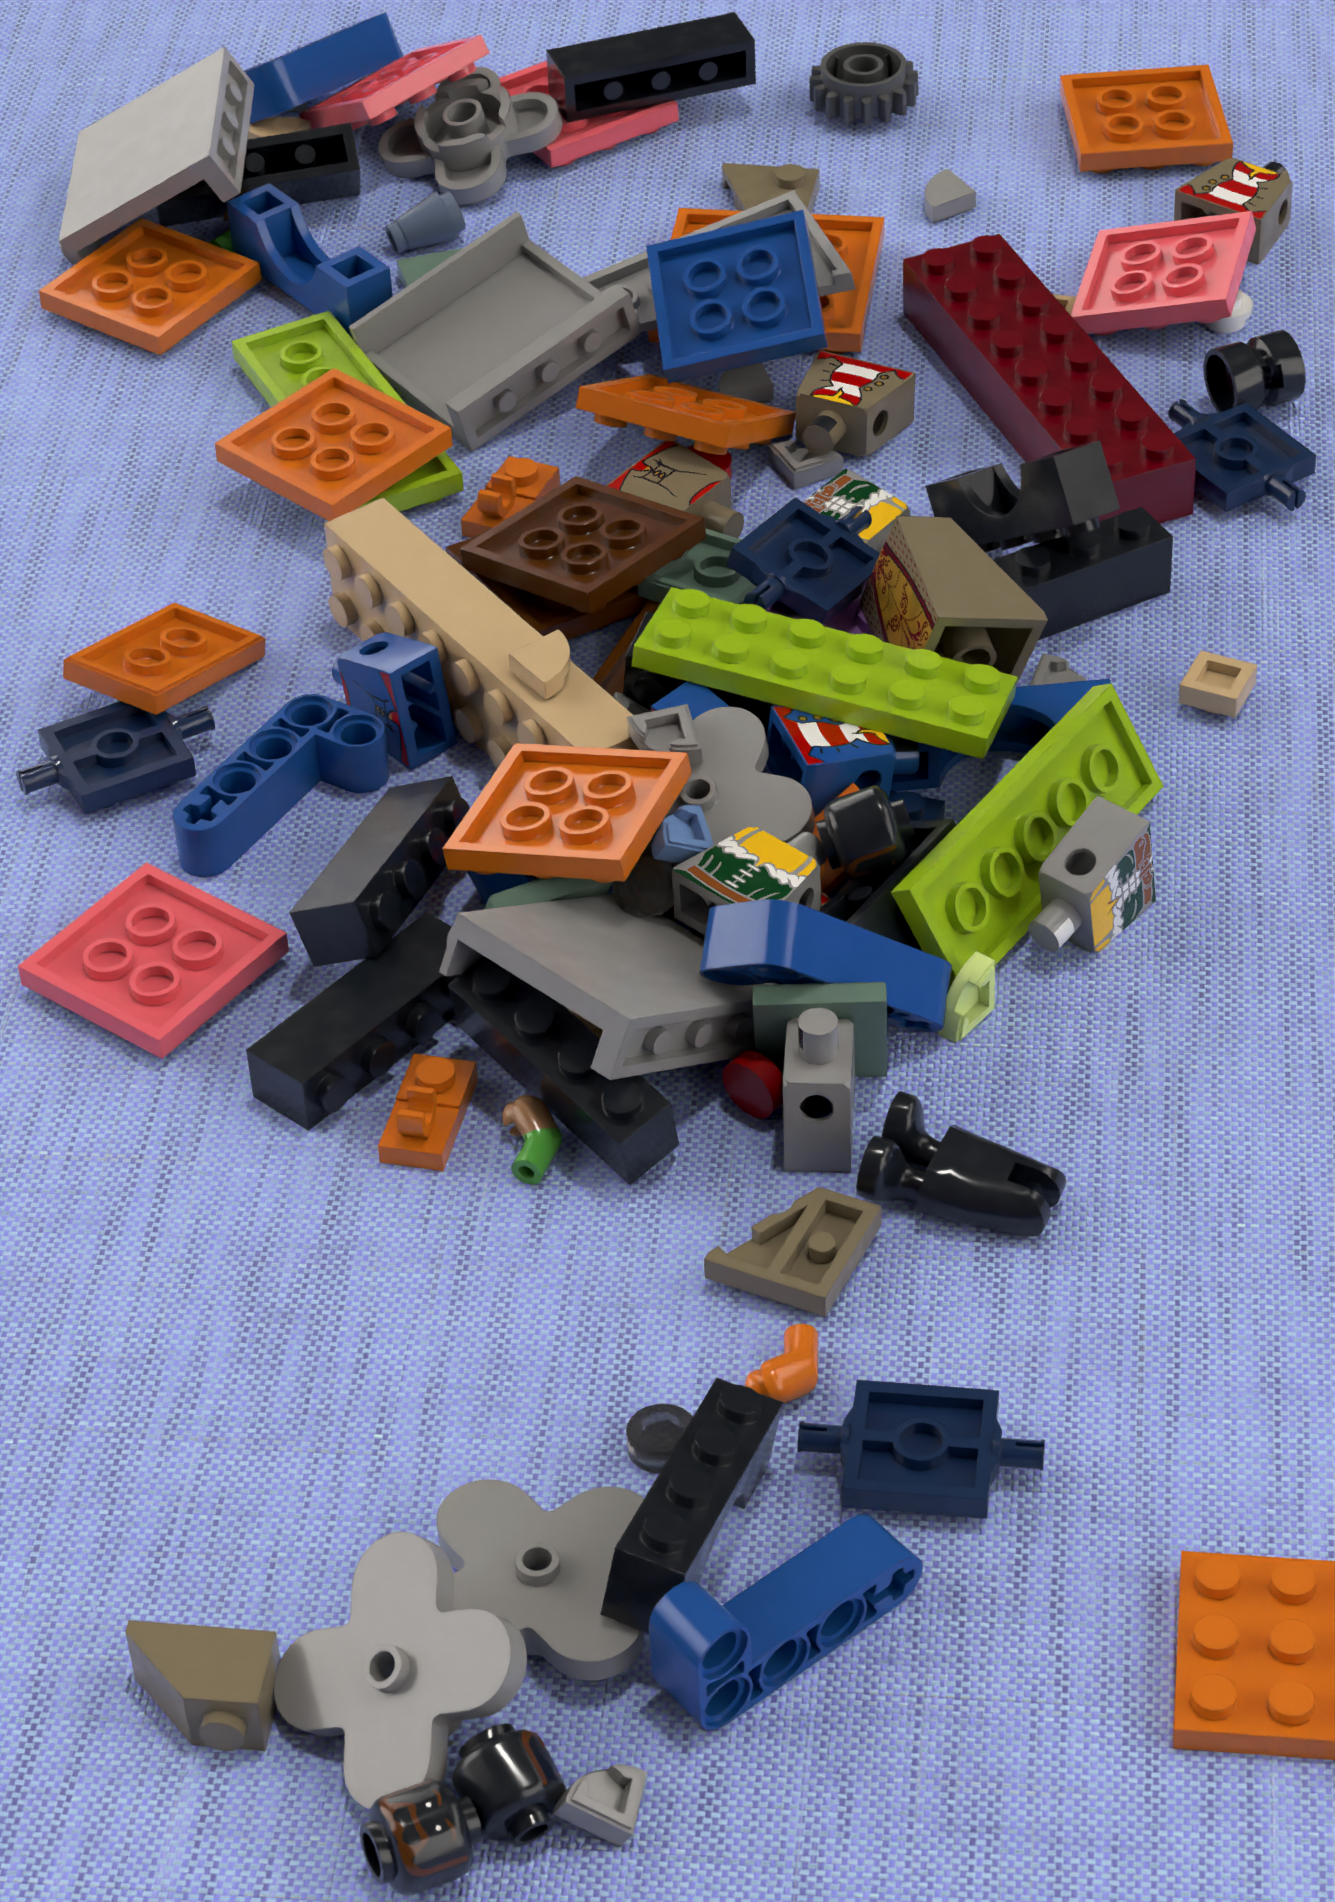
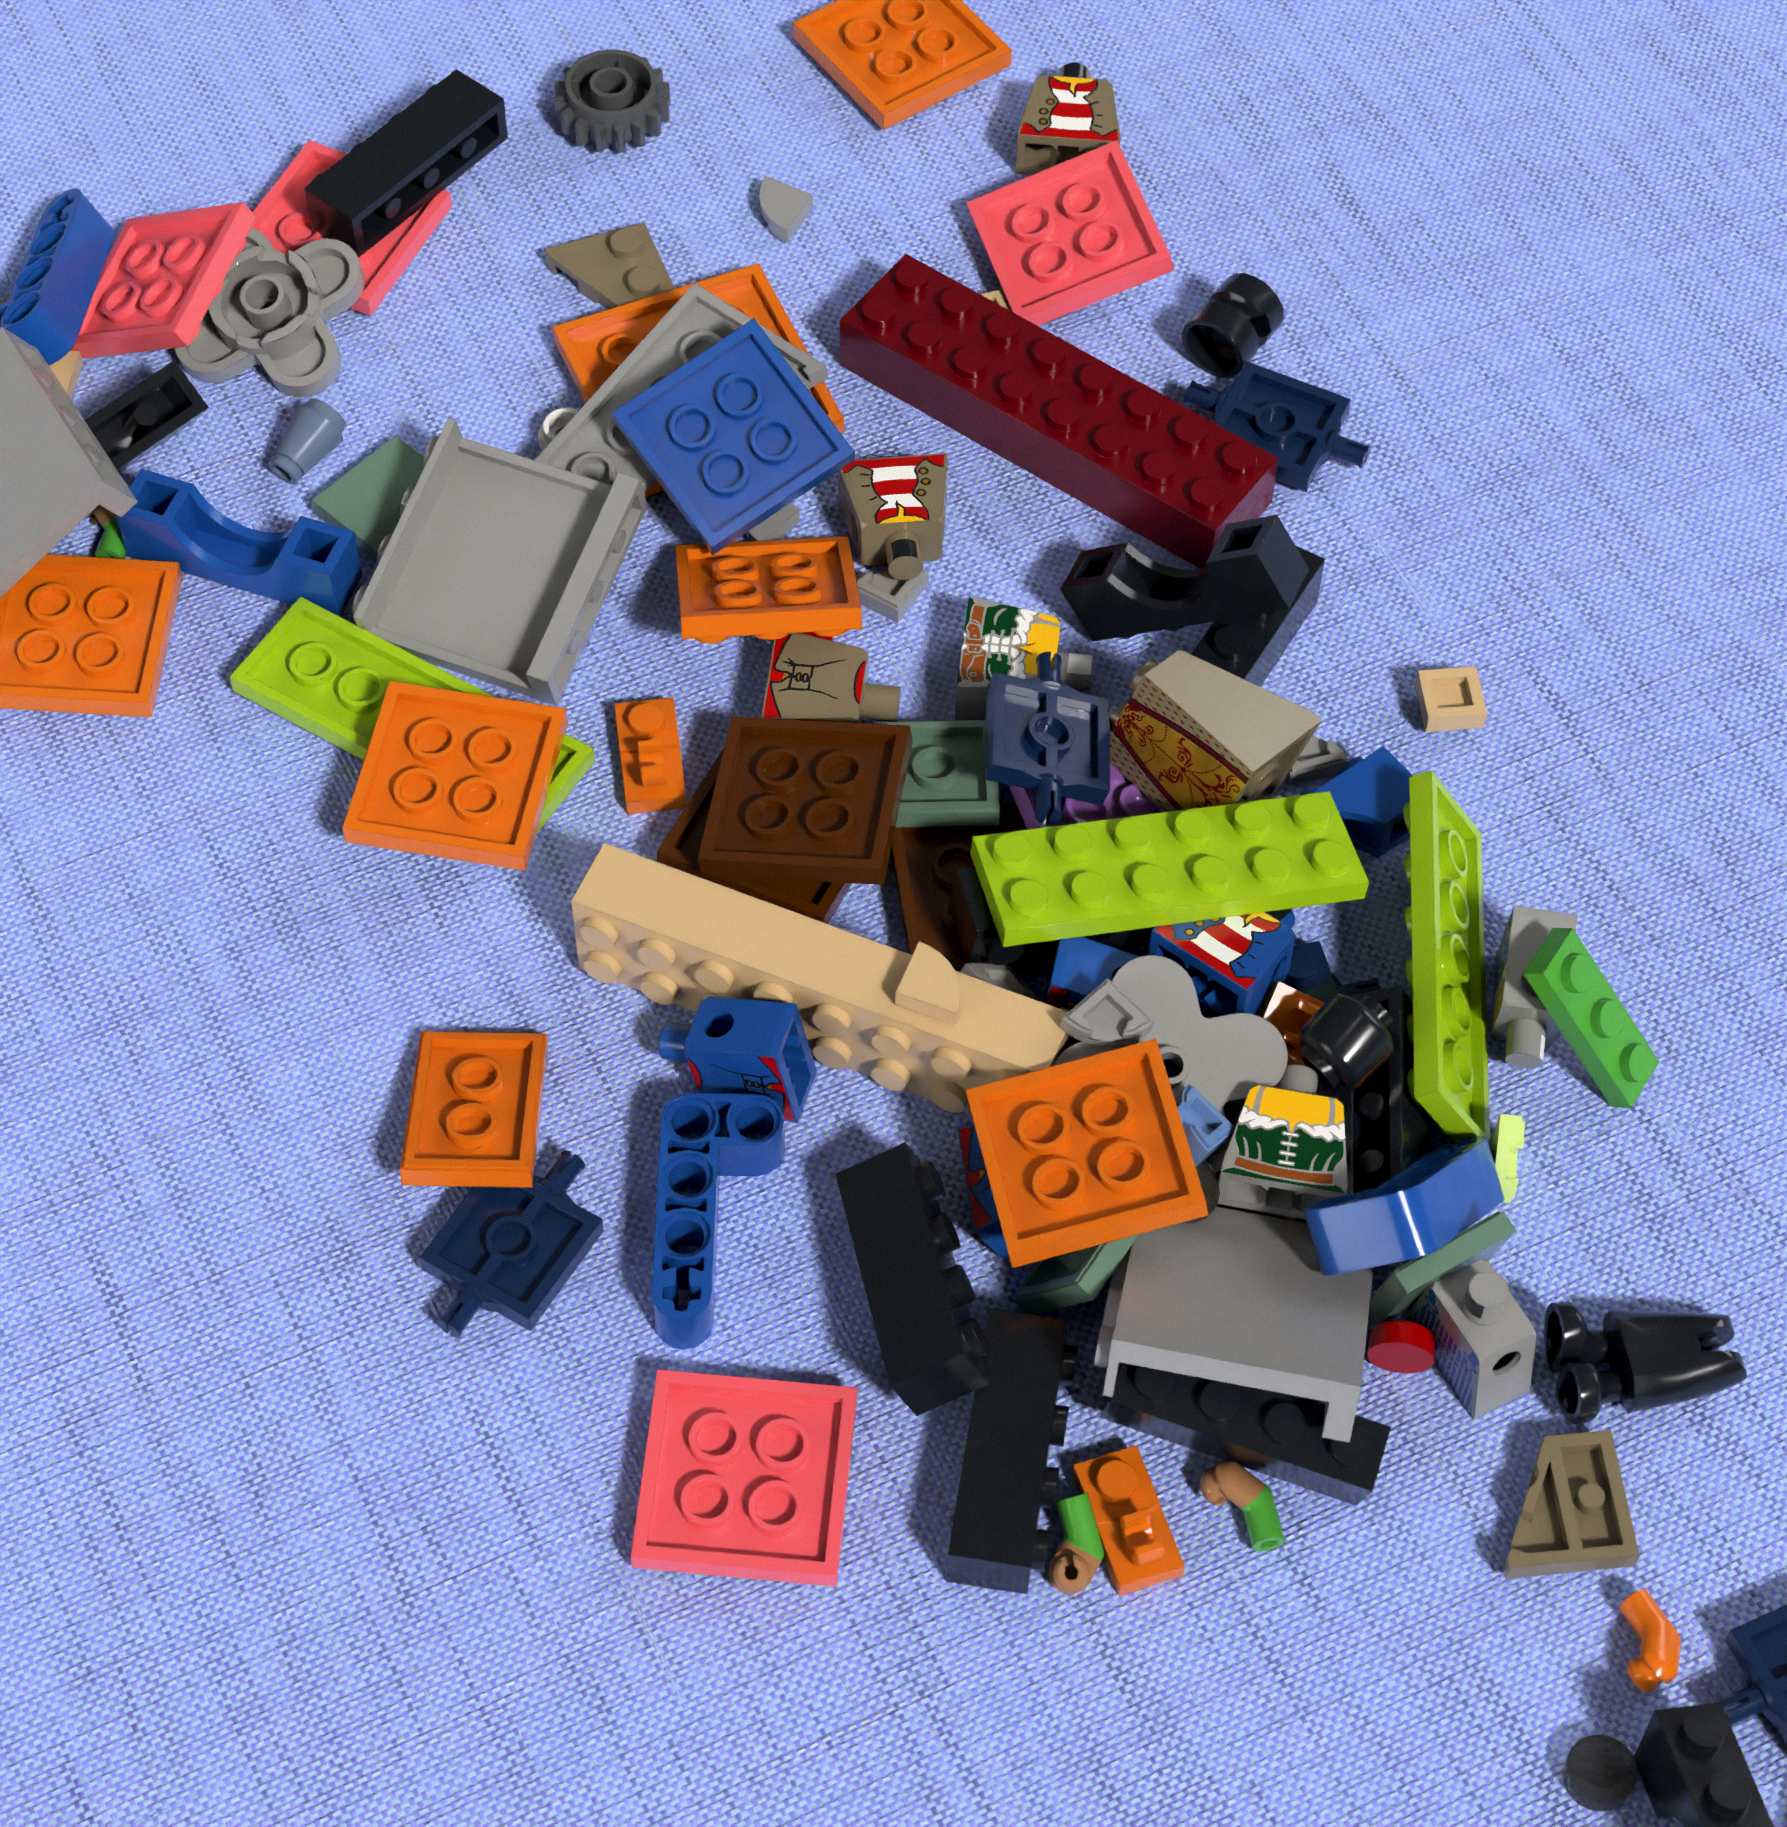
camera: 35 degrees left, 15 degrees up
(368, 1113) = (1079, 1548): none -> arm
(1113, 911) = (1591, 1017): none -> bright green plate

